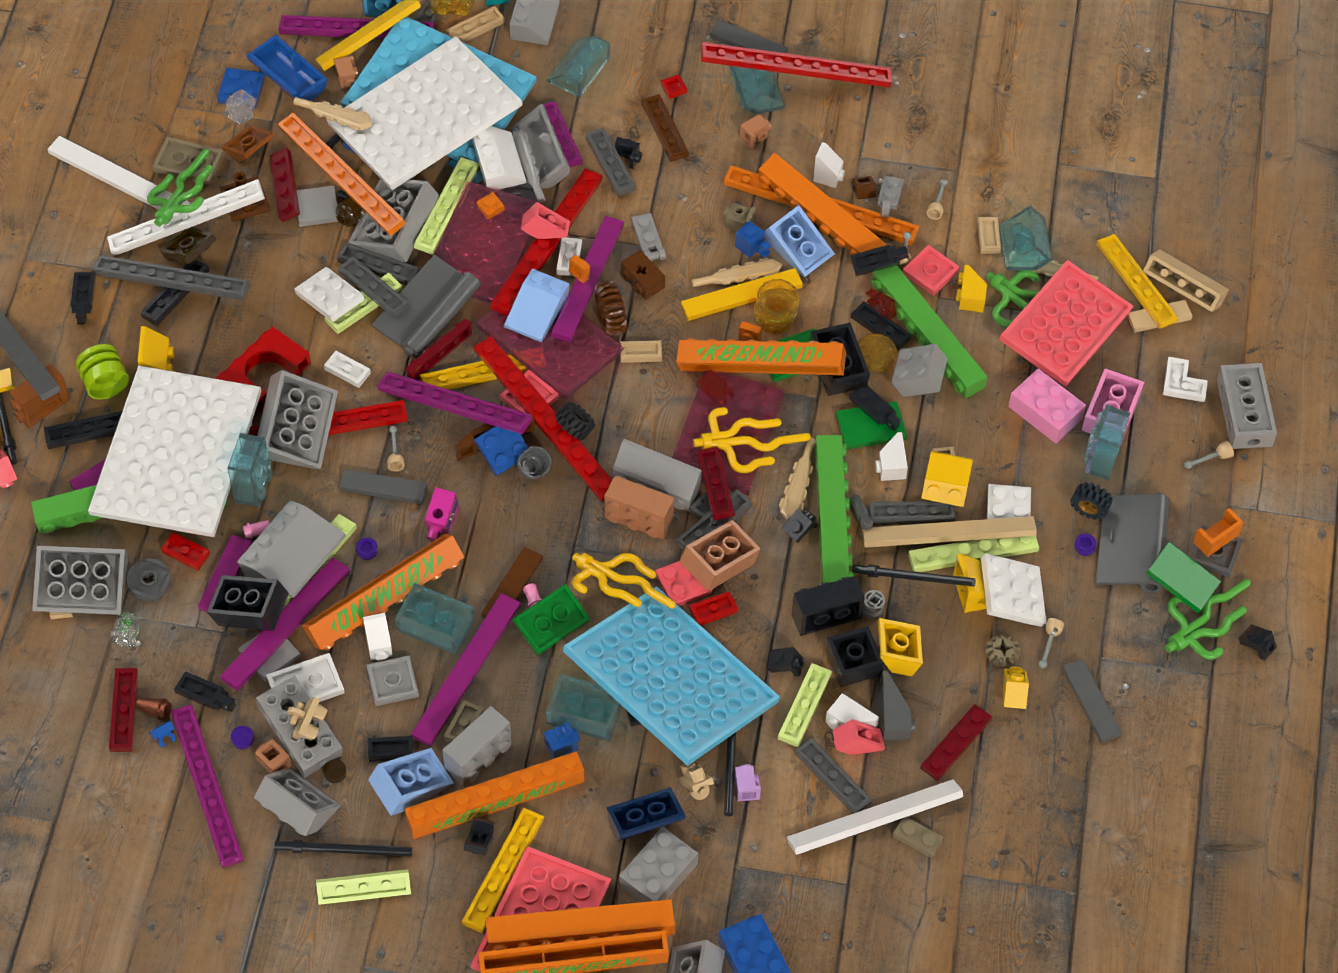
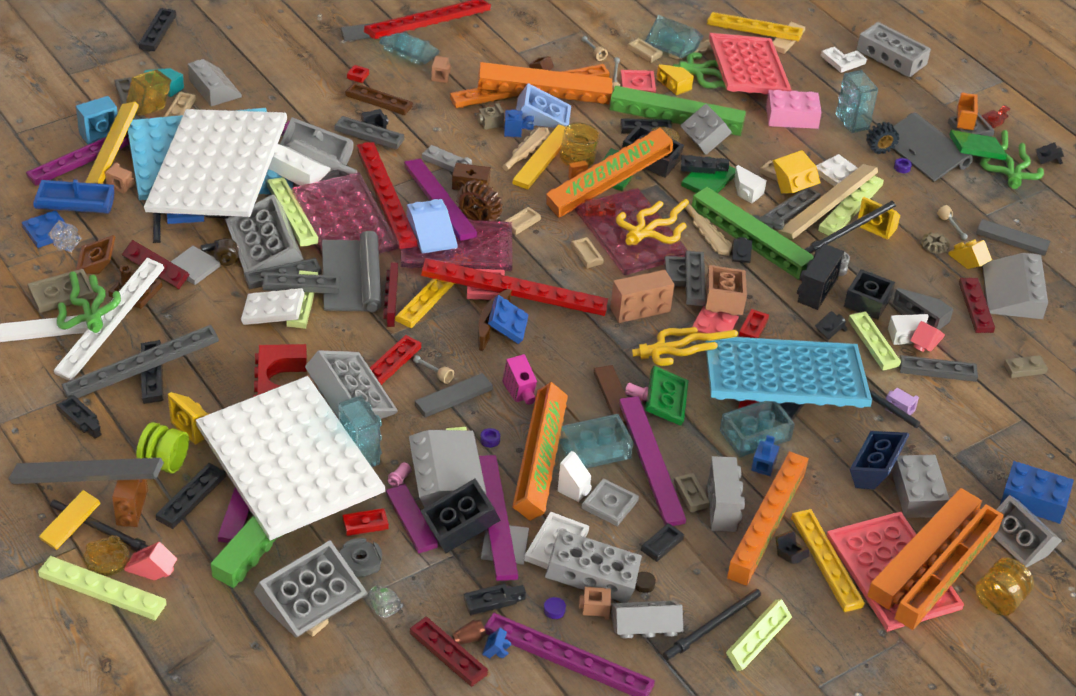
camera: 45 degrees left, 15 degrees down
(188, 245) = (129, 336): dark brown plate -> none
(311, 710) = (605, 546): tan hips -> none
(342, 174) = (197, 230): orange plate -> none
(343, 116) = (149, 196): tan sword -> none
(347, 369) = (341, 342): white plate -> none
(409, 780) = (703, 551): light blue slope -> none
(454, 402) = (446, 312): magenta tile -> none
(490, 205) = (327, 191): orange plate -> none
(534, 463) = (540, 316): dark grey hair -> none
(544, 223) = (378, 178): coral slope -> none
(568, 249) = (408, 193): white plate -> none
(575, 420) = (538, 274): black tyre -> none
(579, 268) = (433, 190): orange plate -> none
(581, 65) = (280, 91): clear light blue slope -> none
(658, 473) = (623, 265): light grey slope -> none
(659, 426) = (587, 252): none -> tan tile
(695, 780) = (876, 421): tan hips -> none
(716, 483) = (672, 253): dark red plate -> none
(828, 167) = (511, 57): white slope -> none
(874, 817) = (991, 372): white tile -> none
(878, 259) = (609, 86): black hinge -> none
(884, 304) = (635, 110): clear red plate -> none
(890, 194) = (564, 58): light grey hinge -> none
(900, 646) = (890, 268): yellow slope -> none
(1013, 590) = (906, 206): white plate -> none
(1017, 753) = (1016, 286): none -> light grey slope
(1115, 391) = (826, 82): bright pink brick -> none
(1186, 280) = (782, 10): tan brick -> none
(1223, 451) = (908, 78): hinge -> none
(1258, 559) = (996, 118): none -> clear red plate

